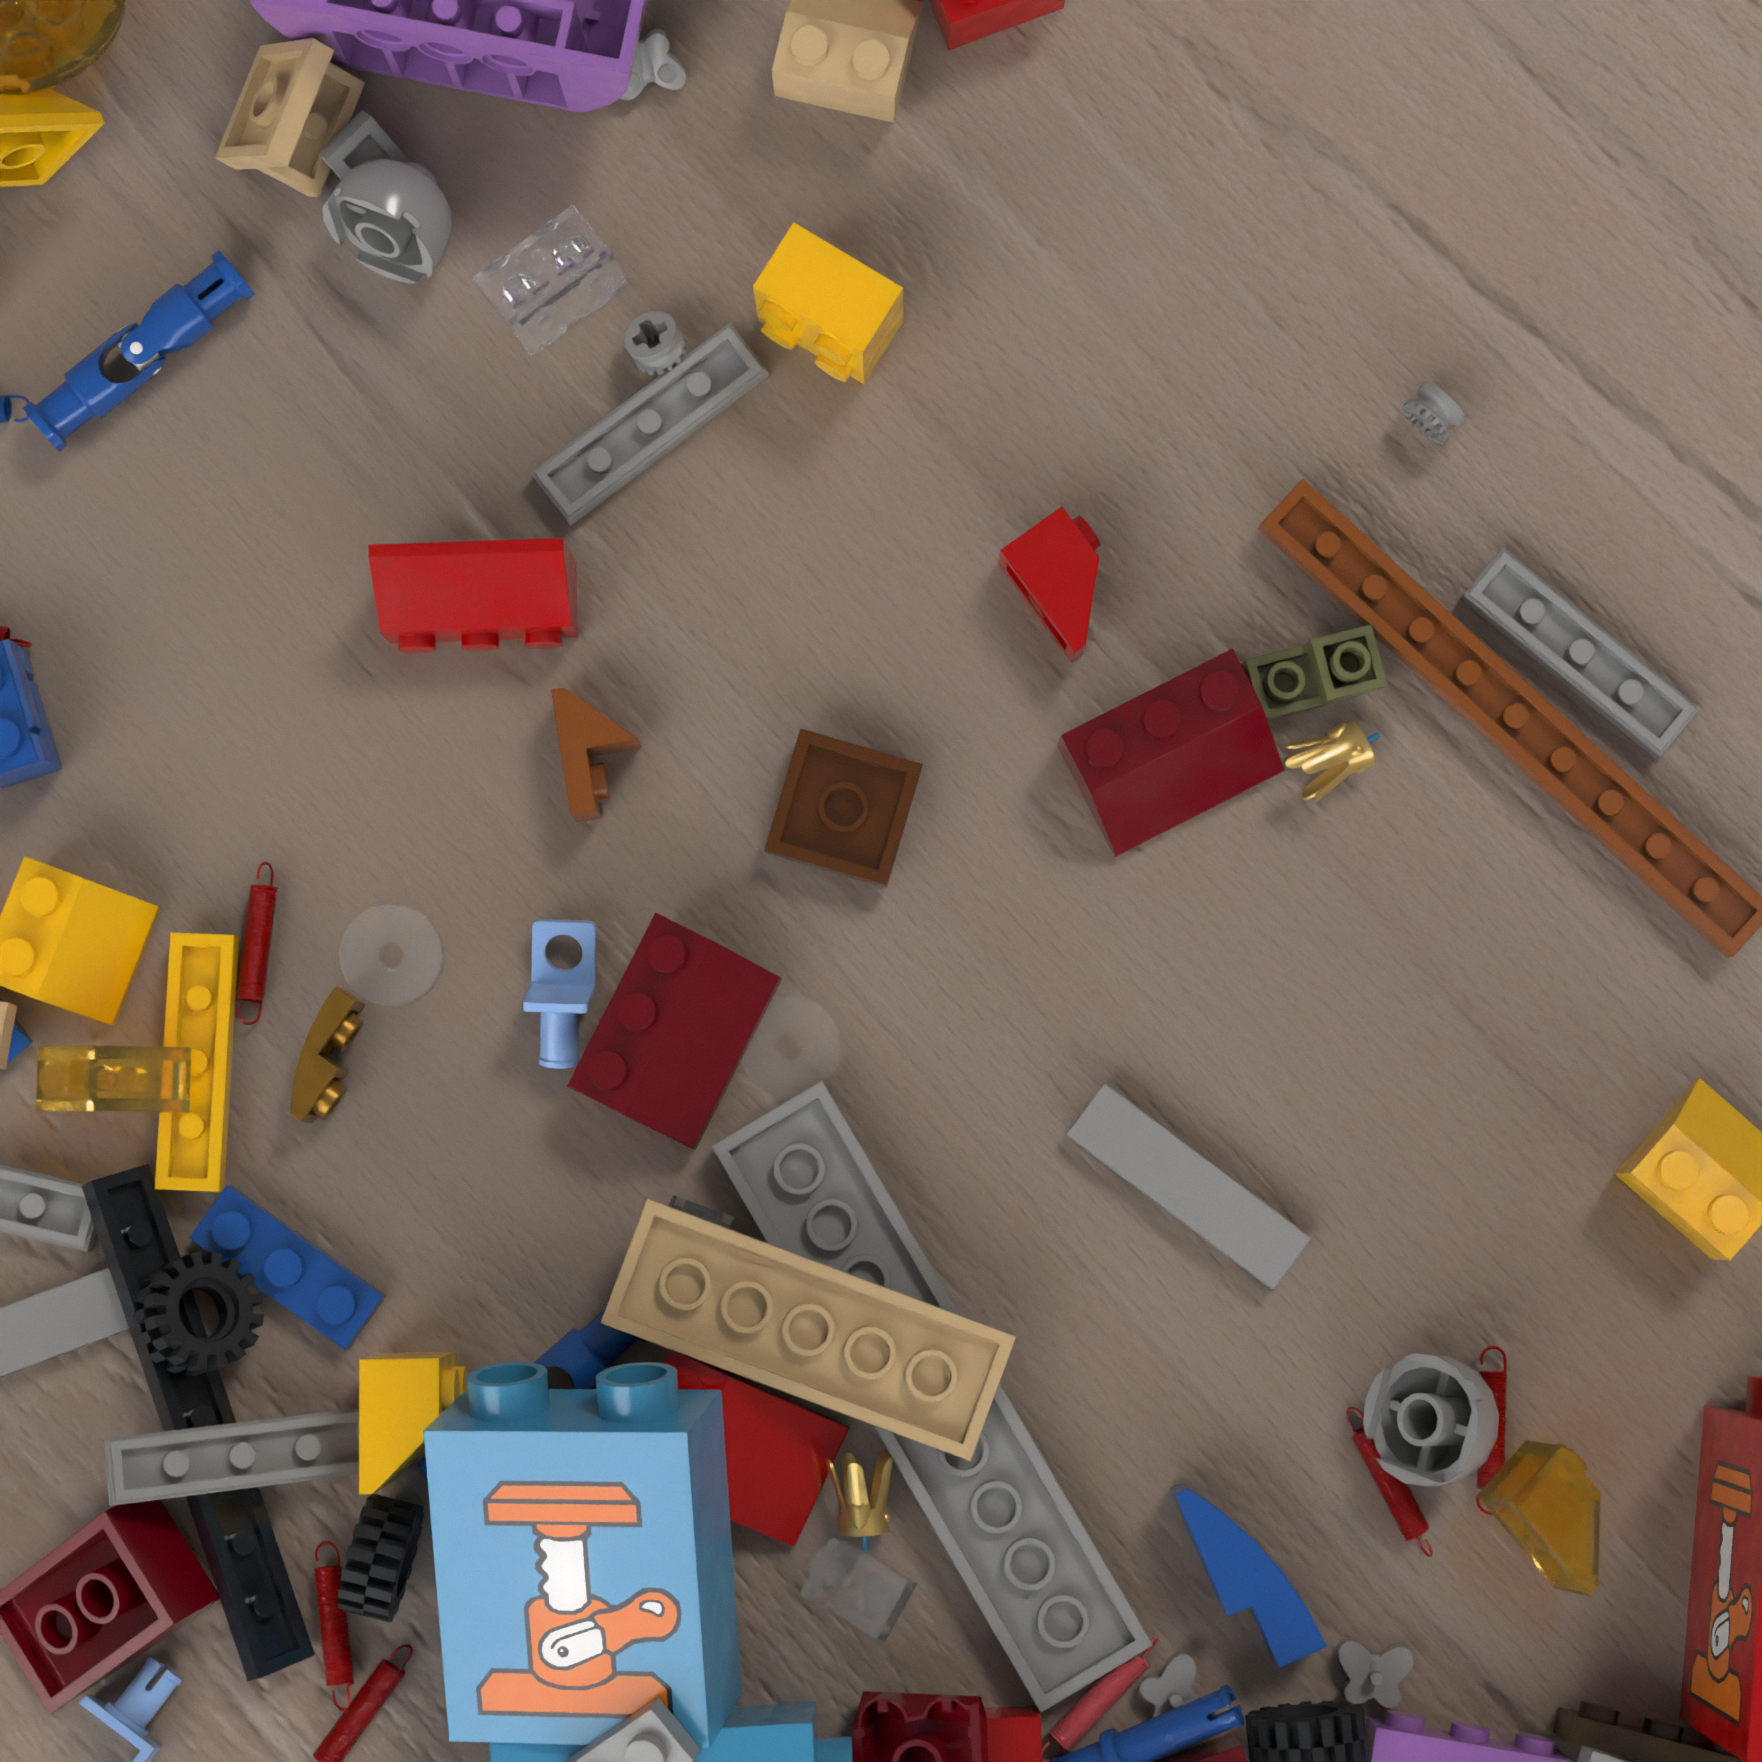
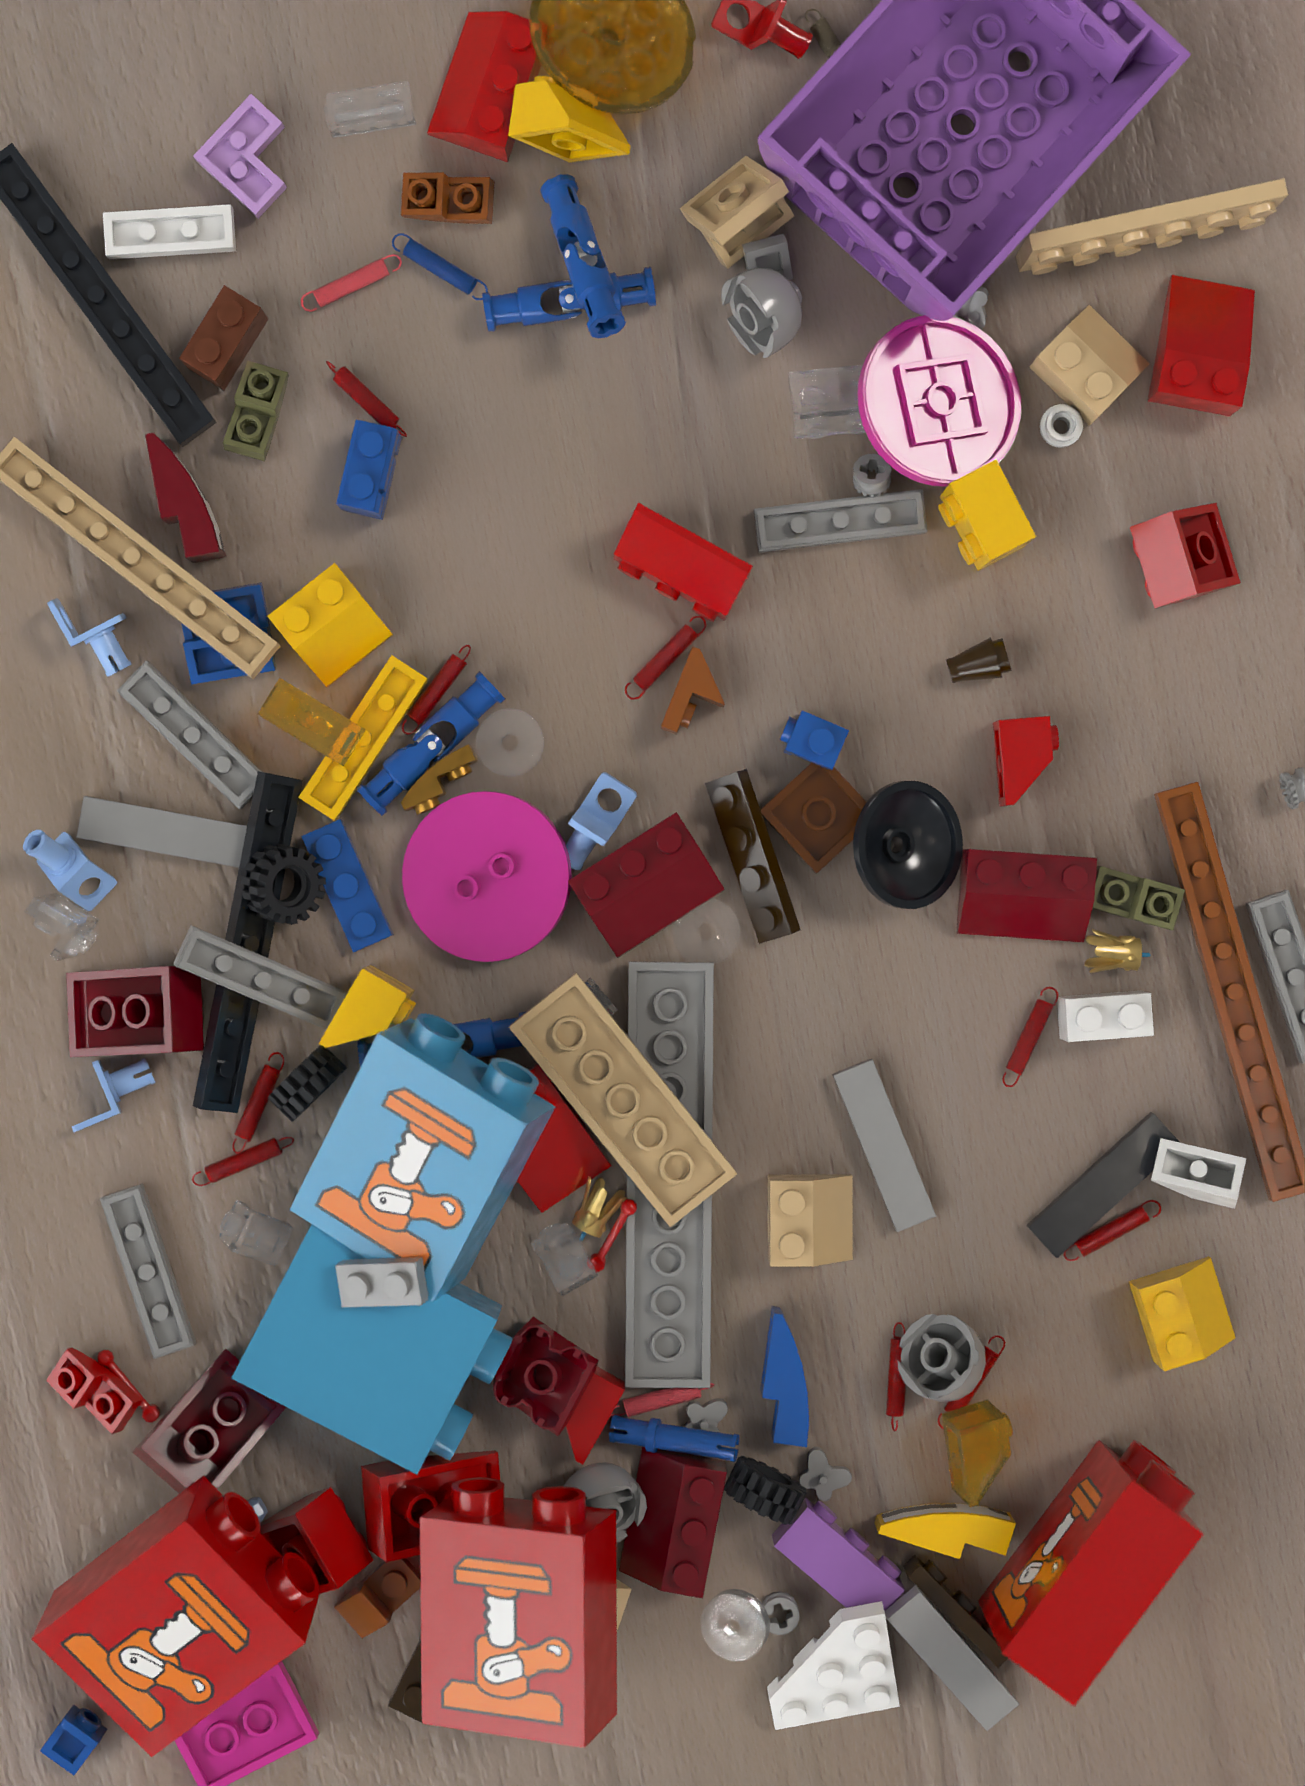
camera: 25 degrees right, 5 degrees up
(121, 285) = (582, 256): none -> blue piece
(274, 1059) = (411, 762): none -> blue piece
(460, 1145) = (486, 876): none -> dark pink plate
(529, 727) = (665, 657): none -> red piece
(679, 197) = (938, 399): none -> plate
(779, 716) = (814, 739): none -> blue bracket
(791, 913) = (752, 856): none -> dark brown plate
(857, 124) = (1072, 419): none -> white plate
(902, 1469) = (598, 1259): none -> red hinge
(934, 494) = (980, 662): none -> dark brown cone
(1001, 762) = (924, 844): none -> black dish
(1110, 208) = (1184, 554): none -> red slope
(1150, 1341) = (809, 1219): none -> tan slope
(1289, 932) = (1030, 1036): none -> red piece
(1369, 846) = (1105, 1016): none -> white brick
(1503, 1067) = (1100, 1186): none -> black tile
(1551, 1119) = (1112, 1230): none -> red piece
(1579, 1641) = (948, 1527): none -> yellow slope
(1614, 974) = (1199, 1172): none -> white slope

